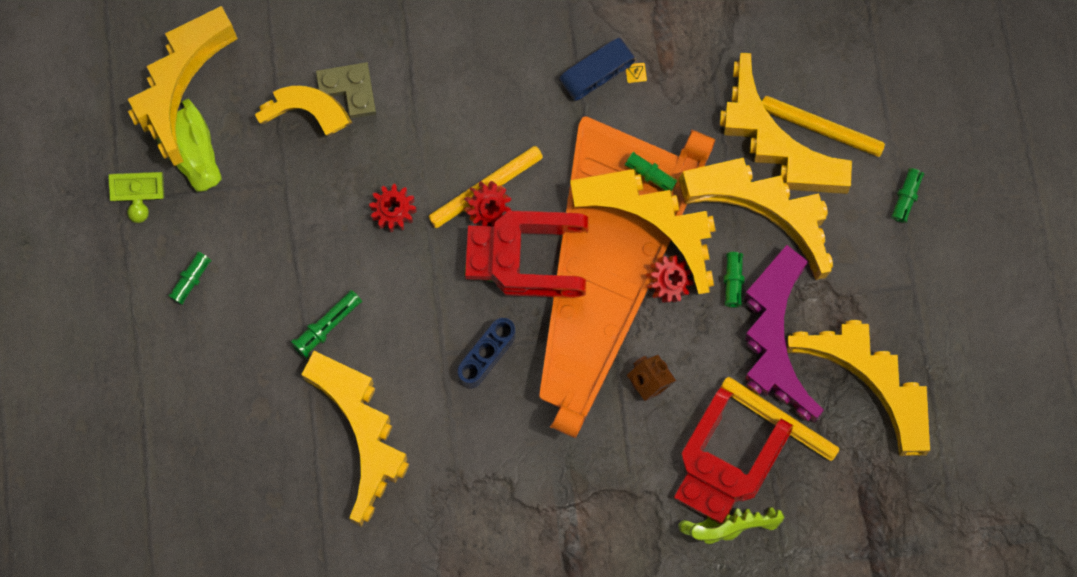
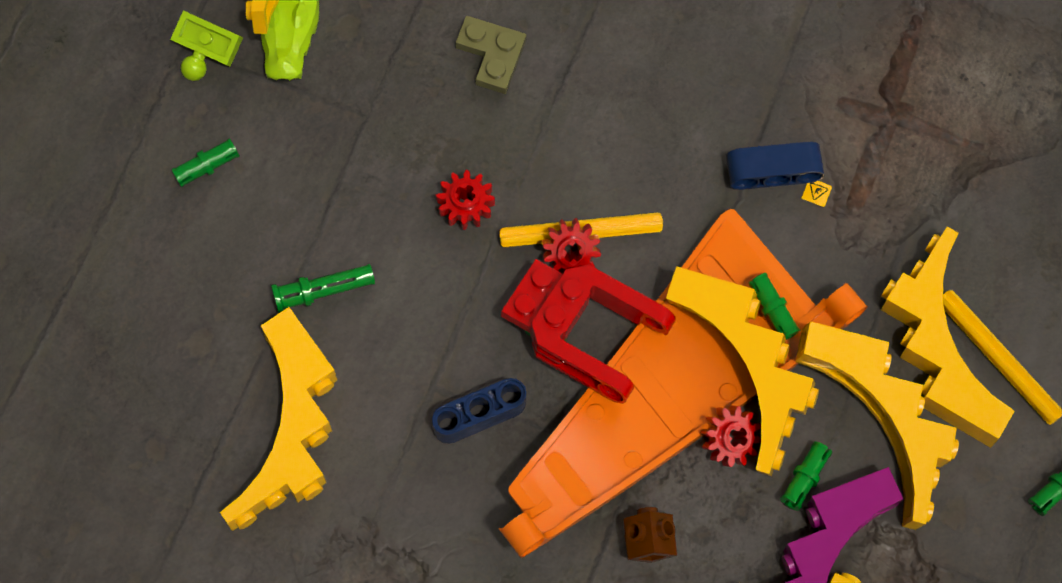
camera: 25 degrees right, 5 degrees down
(322, 105) = (452, 58): yellow arch -> none

